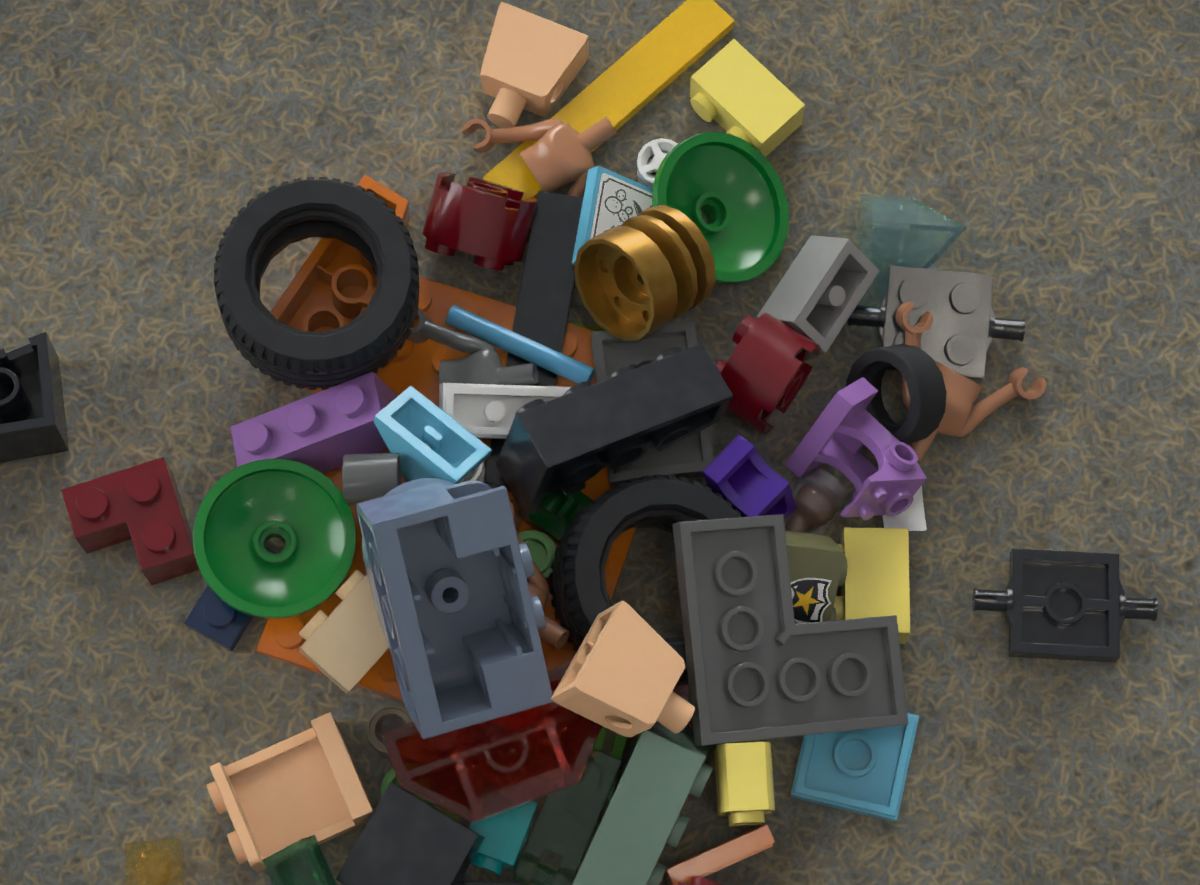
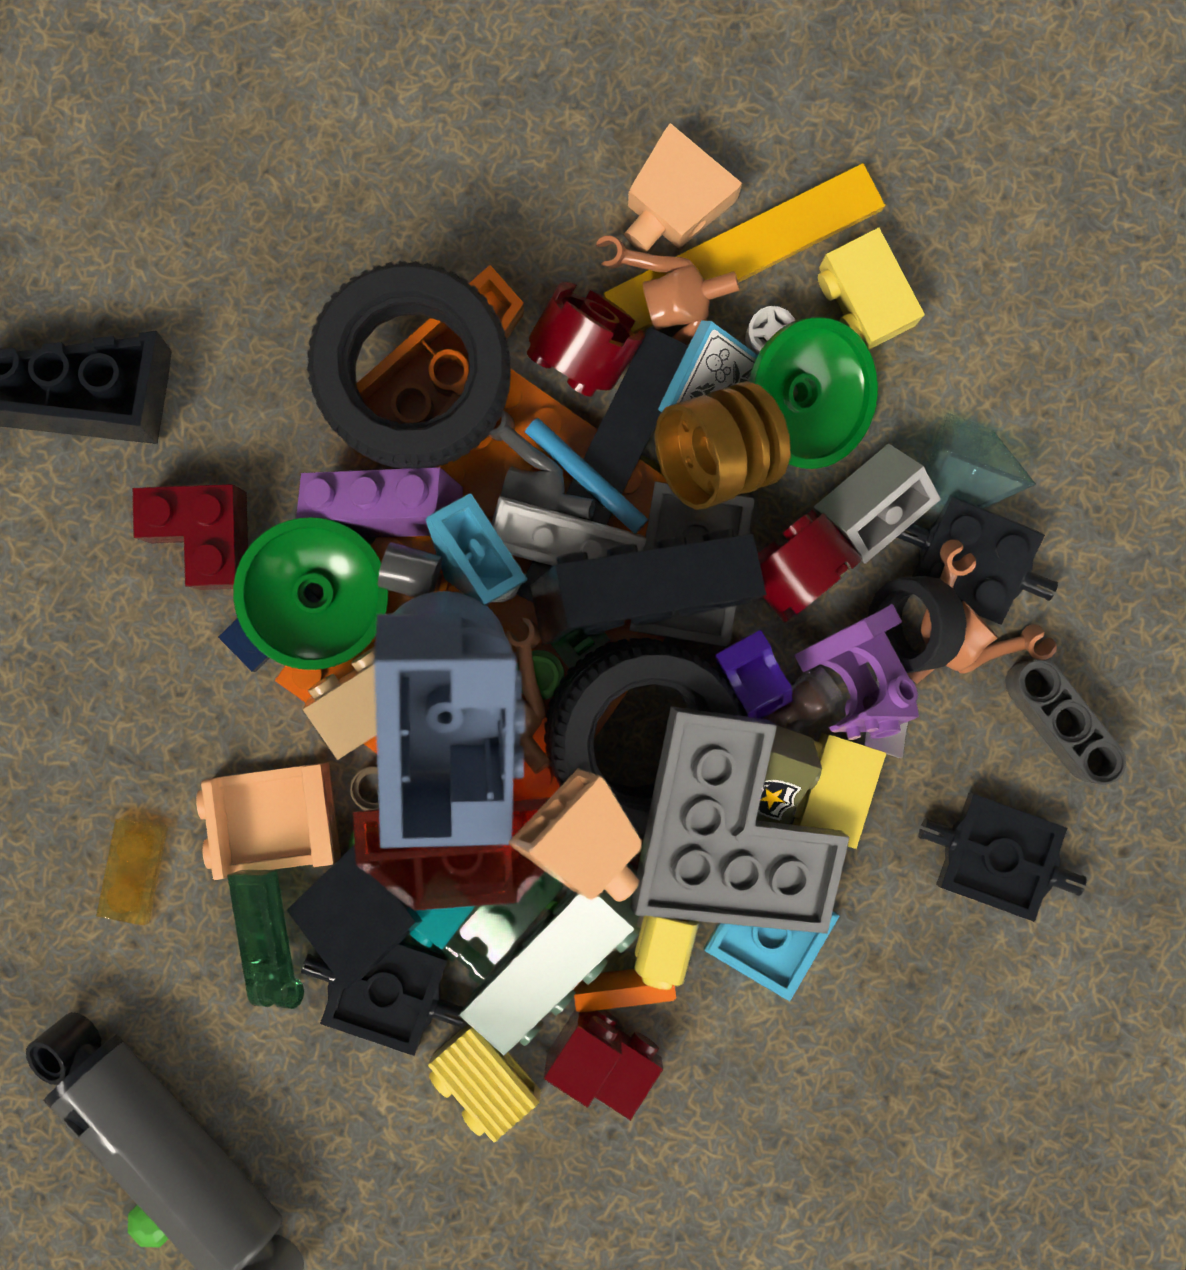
camera: 20 degrees right, 15 degrees up
(1069, 427) = (1086, 729): none -> dark grey beam

